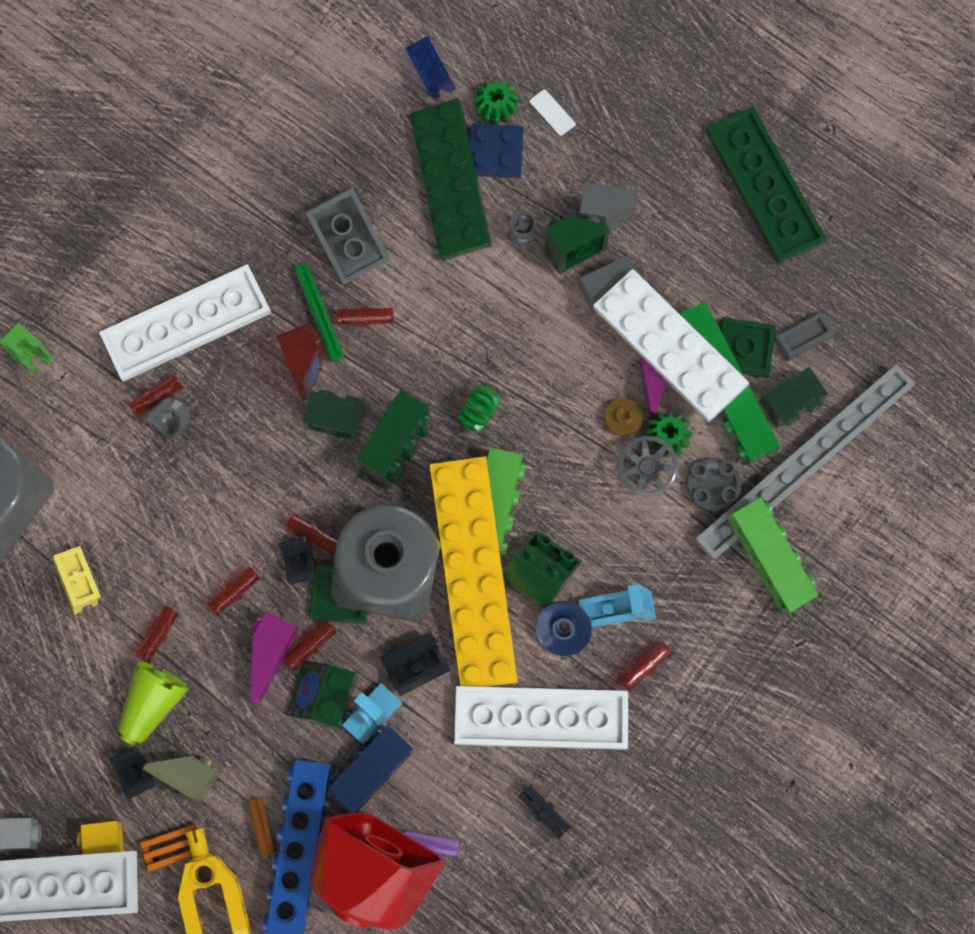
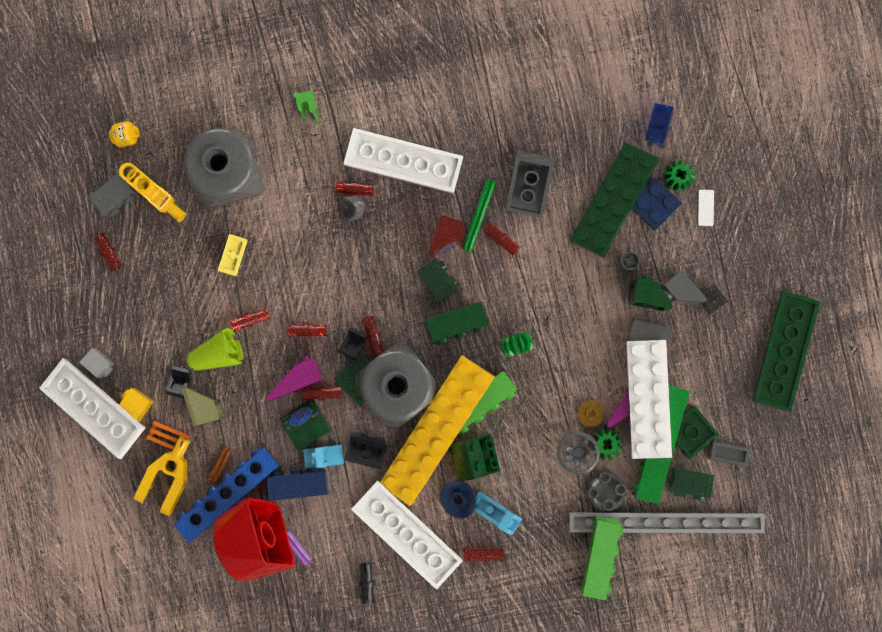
camera: 45 degrees right, 10 degrees up
(647, 193) = (714, 296): none -> clear smoke brick

